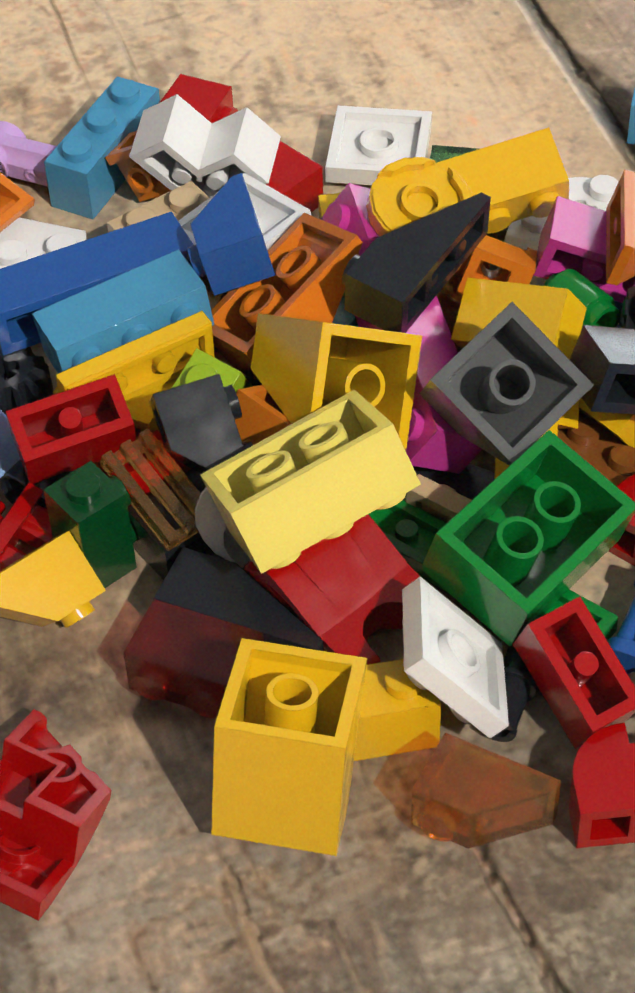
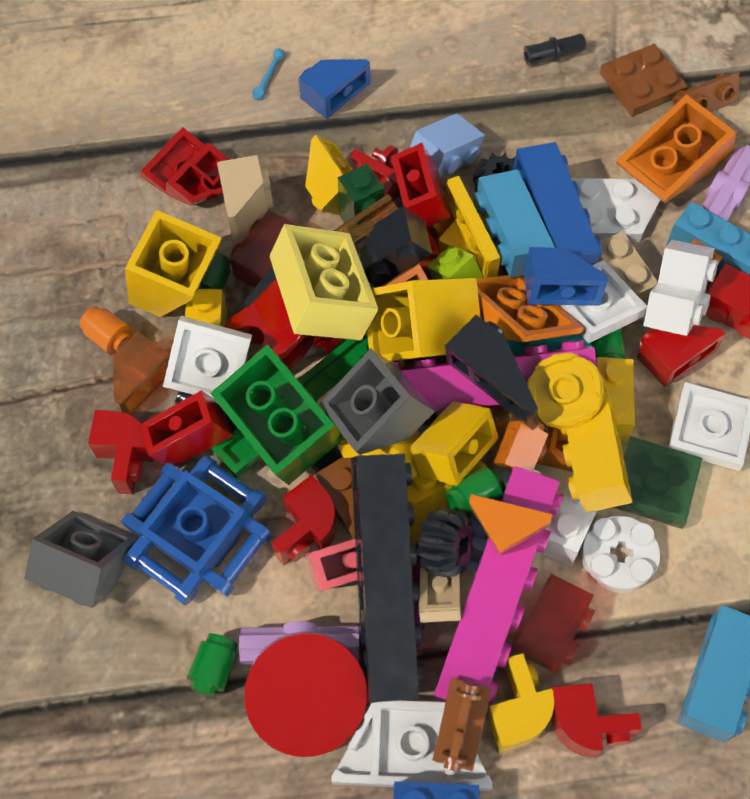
camera: 100 degrees right, 15 degrees up
(117, 690) = (245, 194): none -> tan slope
(405, 866) = (104, 329): none -> orange brick

